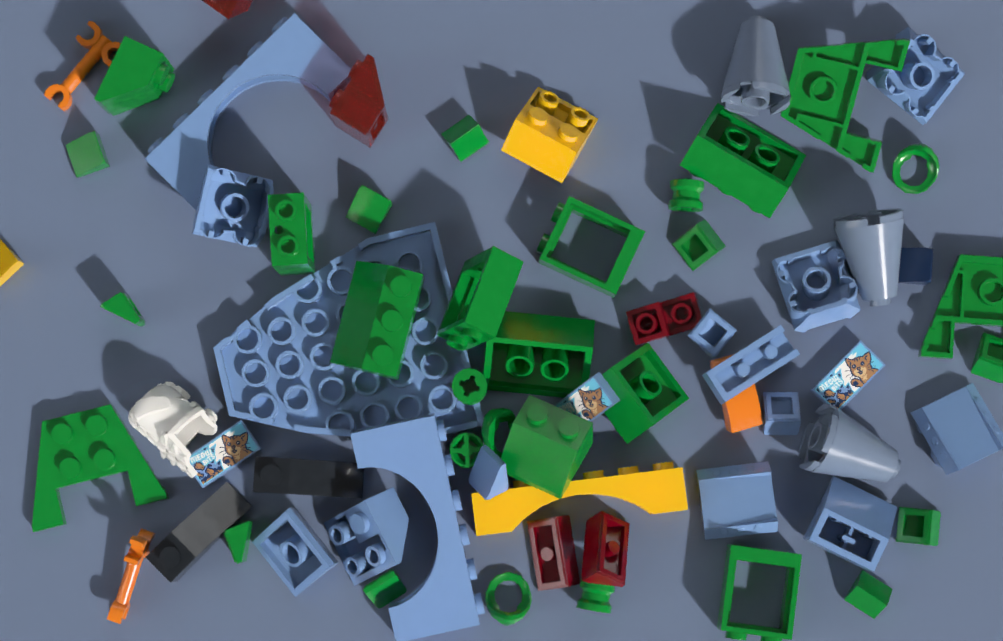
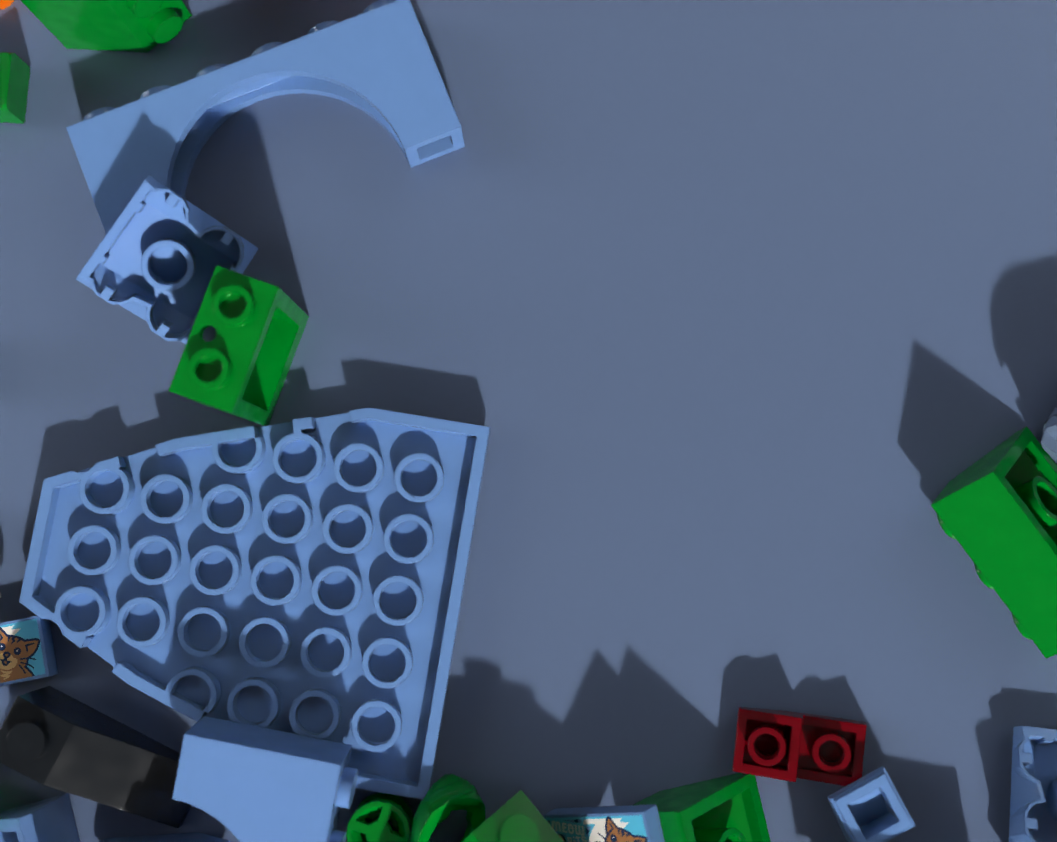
camera: 25 degrees right, 0 degrees up
(361, 106) = (452, 181): clear red slope -> none
(369, 209) = (394, 361): green slope -> none
(377, 319) = (322, 555): green slope -> none
(465, 138) = (597, 312): green slope -> none
(471, 391) = (435, 721): green wheel -> none
(480, 299) = (507, 595): green window -> none
(539, 354) = (568, 717): green slope -> none
(549, 134) = (735, 364): yellow slope -> none
(561, 216) = (774, 619): green window -> none
(686, 195) = (919, 558): green wheel -> none
(698, 244) = (903, 647): green slope -> none

